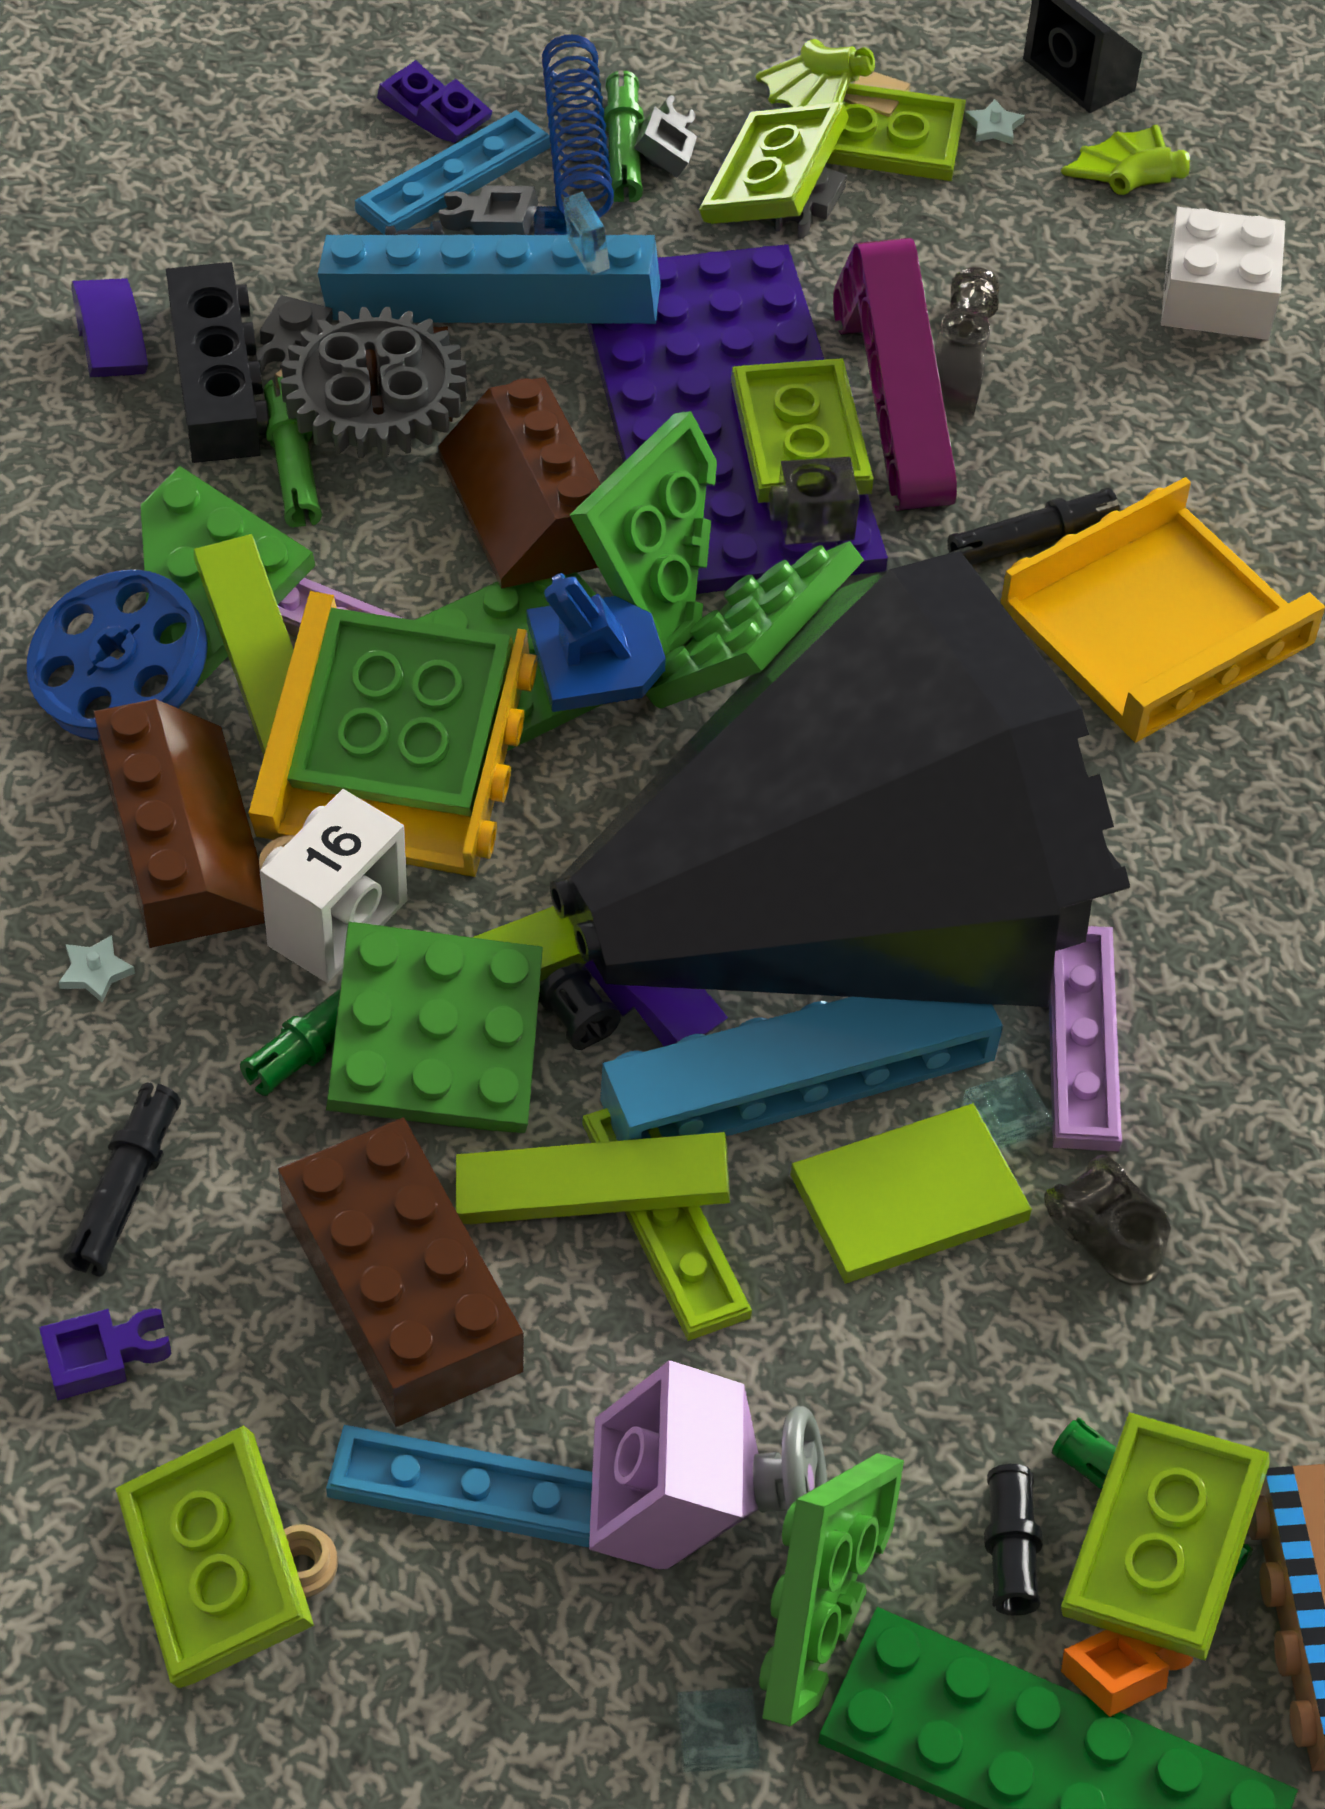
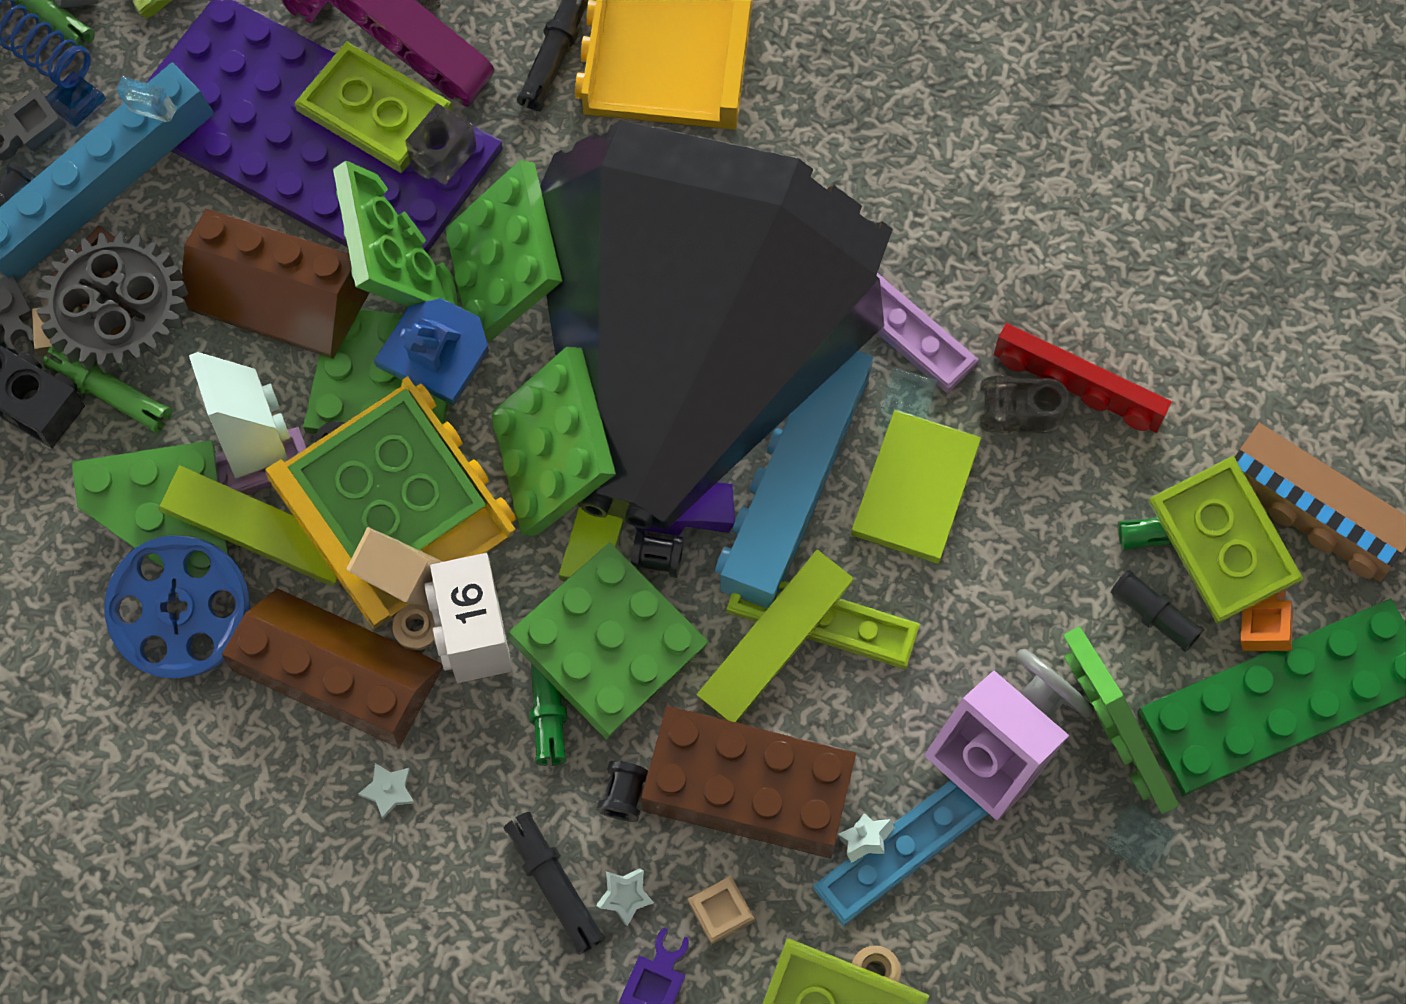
camera: 45 degrees left, 15 degrees up
(168, 1252) = (625, 894): none -> light aqua piece
(235, 1359) = (721, 910): none -> tan tile
(262, 1166) = (623, 791): none -> black bush
(316, 767) = (393, 567): none -> tan slope
(360, 542) = (241, 413): none -> light aqua slope
(446, 1433) = (866, 837): none -> light aqua piece
(592, 809) = (552, 442): none -> bright green plate
(1214, 1272) = (1095, 385): none -> red plate

